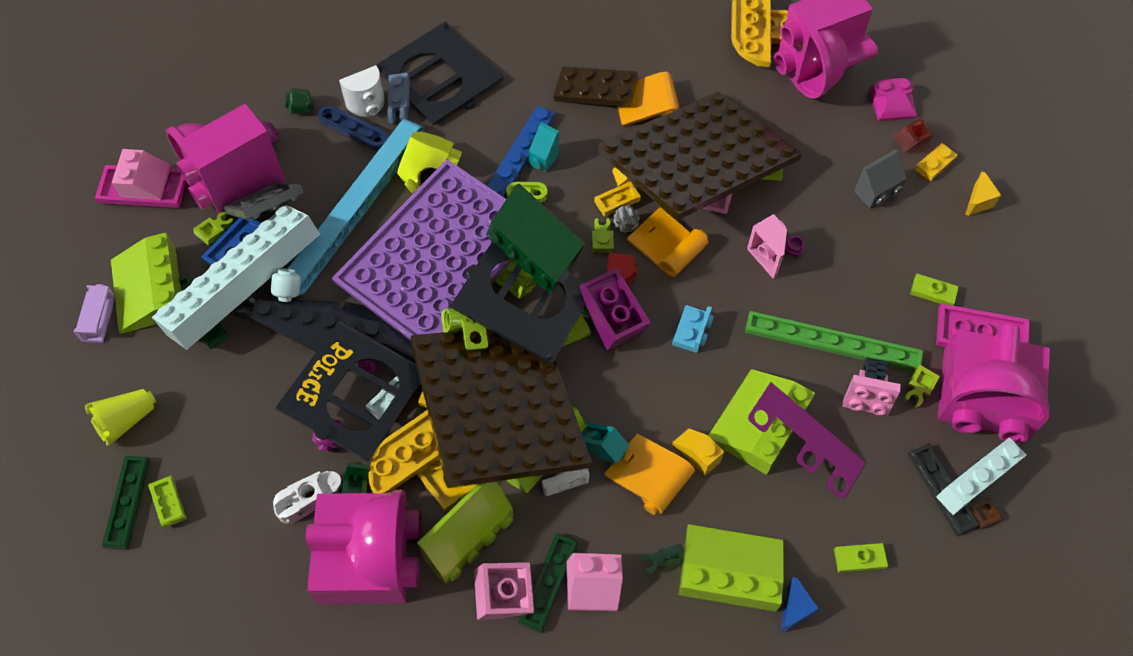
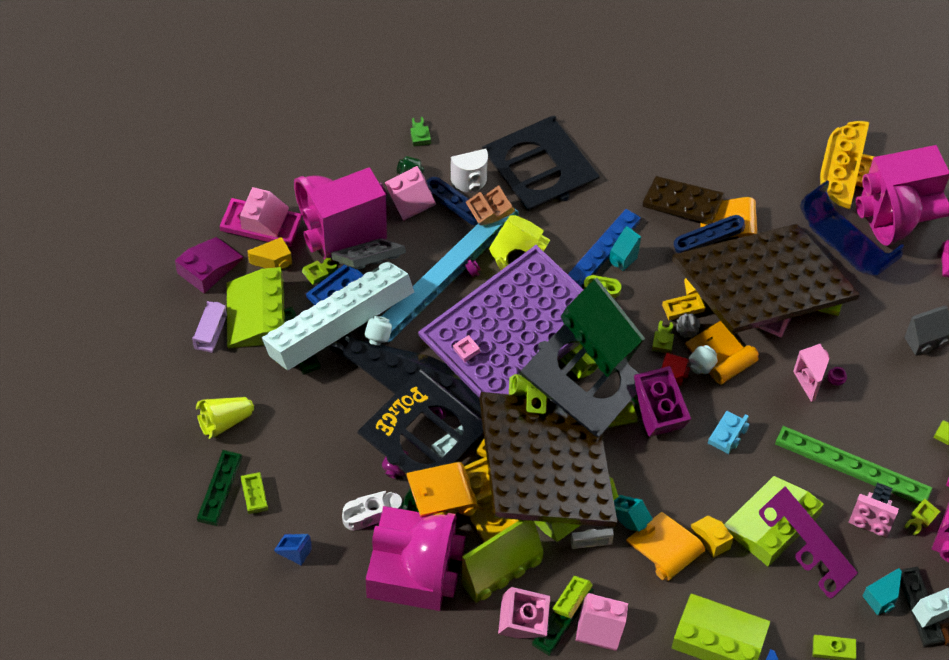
camera: 10 degrees right, 5 degrees down
(85, 242) = (207, 263): none -> magenta slope
(156, 220) = (271, 255): none -> yellow slope
(222, 560) = (294, 547): none -> blue slope
(302, 126) = (410, 193): none -> bright pink slope
(306, 63) = (420, 133): none -> bright green plate
(383, 196) = (473, 268): none -> magenta plate
(386, 459) = (445, 490): none -> light orange door
(387, 288) = (466, 348): none -> bright pink plate
(391, 127) = (490, 207): none -> nougat slope
(398, 96) = (501, 174): sand blue hinge -> none
(555, 558) = (572, 596): none -> lime plate
(631, 117) = (710, 234): none -> dark blue plate
(650, 253) = (703, 359): none -> light aqua head
(668, 556) = (665, 614): clear green plate -> none
(770, 97) = (843, 235): none -> clear blue windscreen
(902, 482) = (884, 592): none -> teal slope

